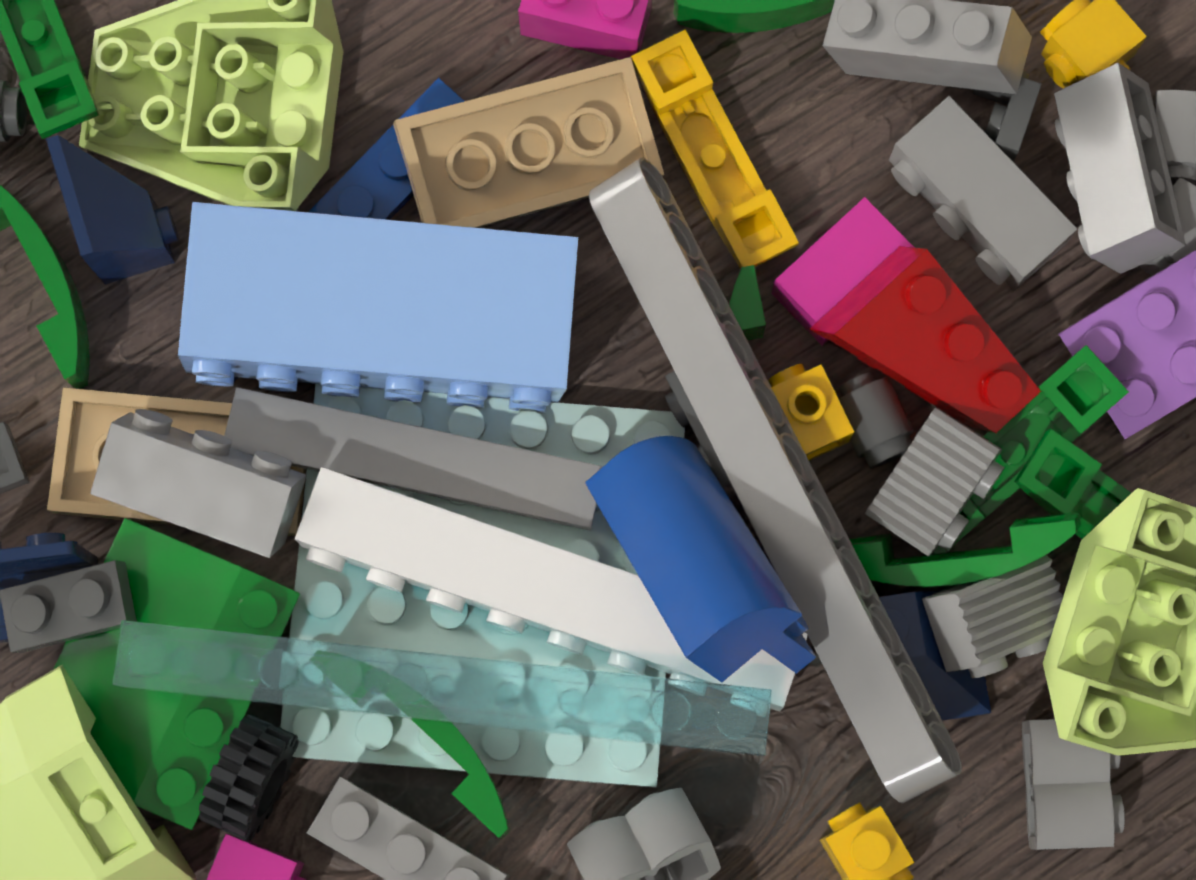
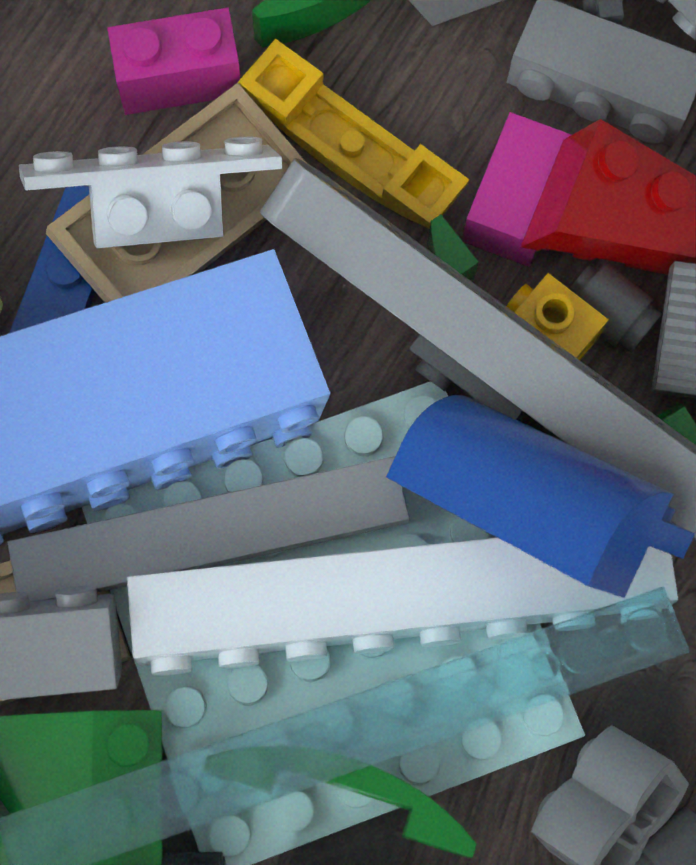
camera: 30 degrees left, 5 degrees down
(501, 131) = (152, 195): none -> white bracket

